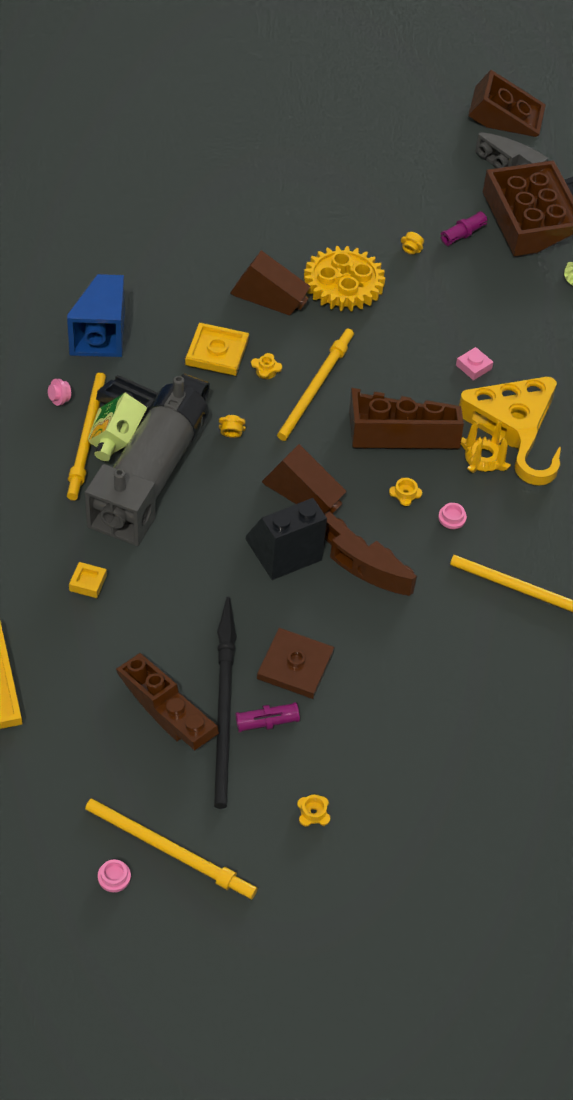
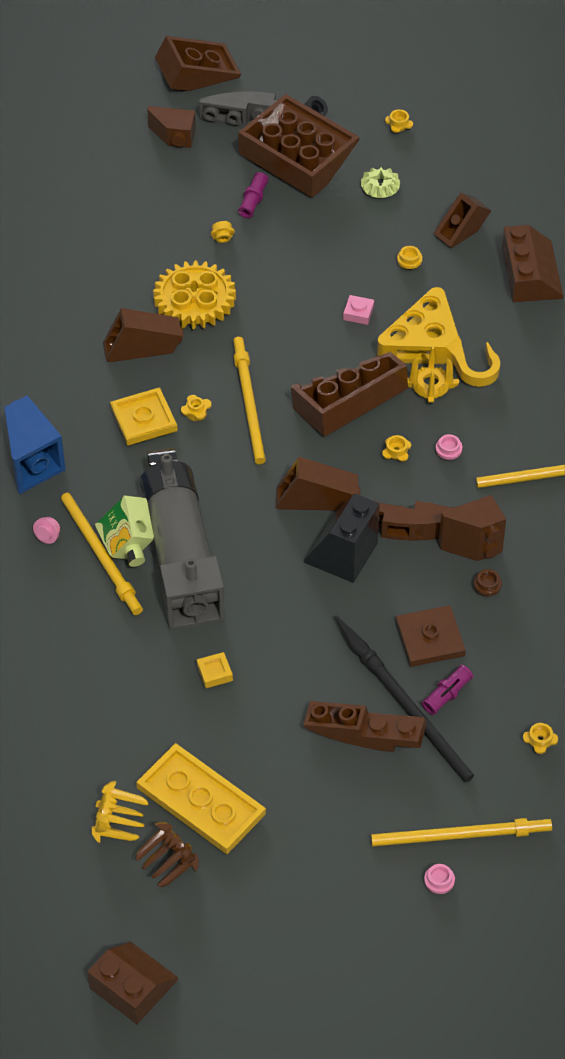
camera: 30 degrees left, 0 degrees up
(122, 385) = (101, 498): black plate -> none
(232, 426) = (215, 475): yellow plate -> none
(385, 648) = (487, 582): none -> reddish brown plate
(404, 593) = (473, 529): none -> reddish brown slope
(446, 144) = (173, 125): none -> reddish brown slope
(555, 345) = (409, 257): none -> yellow plate

